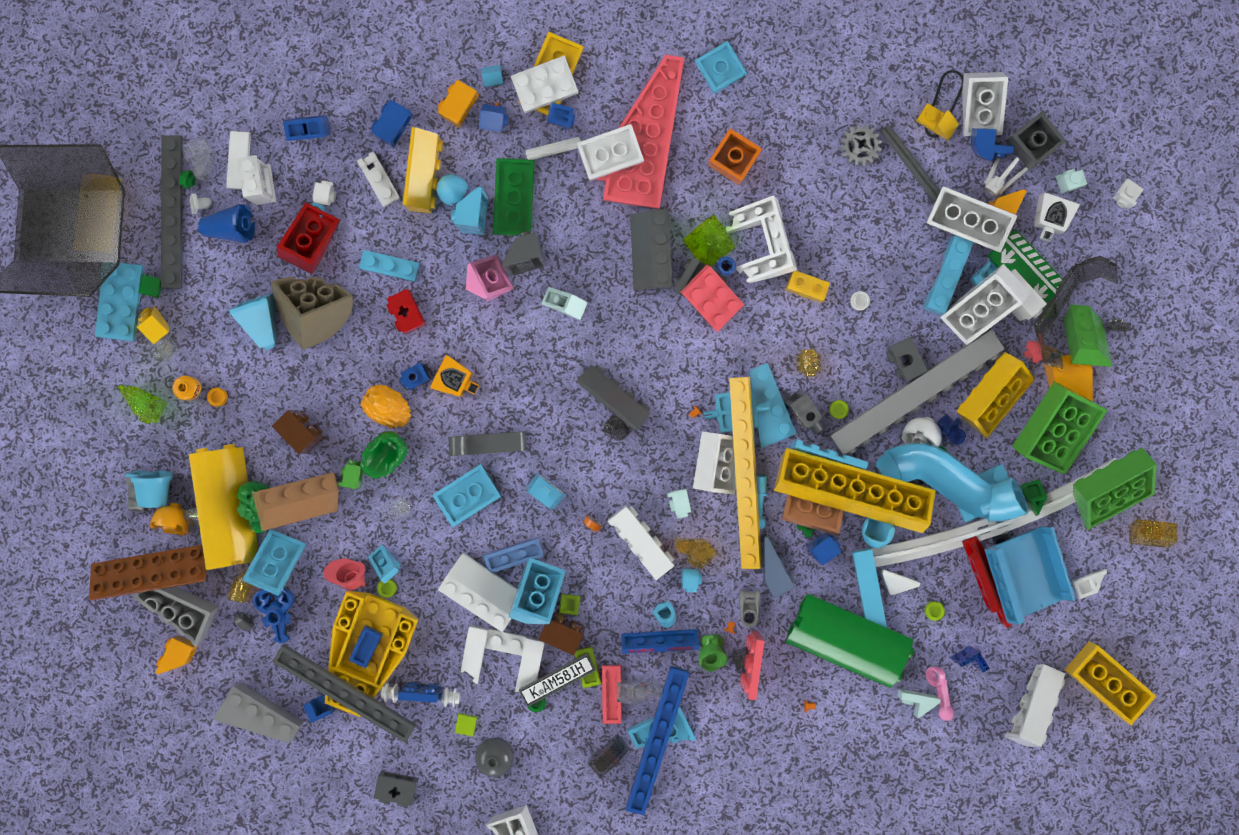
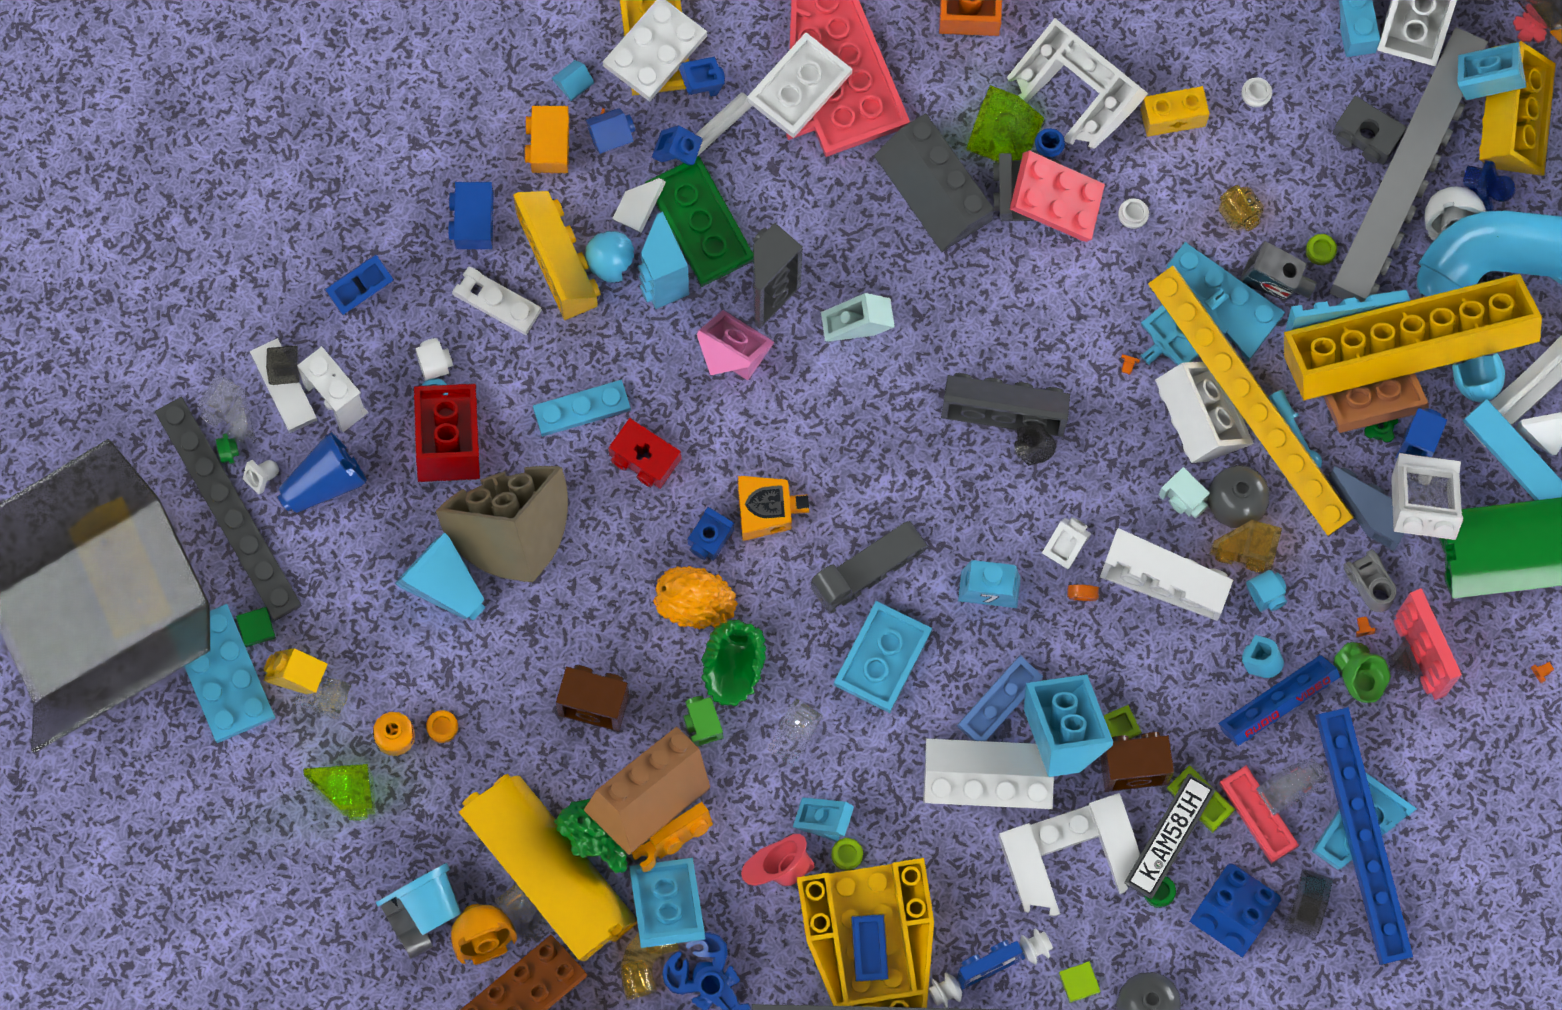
camera: 30 degrees left, 15 degrees down
(242, 147) = (282, 365): none -> clear smoke slope
(313, 527) = (673, 835): none -> light orange plate
(484, 169) = (638, 204): none -> white tile
(525, 148) = (677, 144): none -> blue bracket
(569, 736) = (1236, 909): none -> blue bracket
(601, 491) = (1067, 542): none -> white bracket
(707, 519) = (1238, 496): none -> dark grey cylinder
(749, 330) = (1133, 213): none -> white plate
(804, 585) = (1426, 496): none -> white window
(994, 368) = (1491, 71): none -> medium azure slope

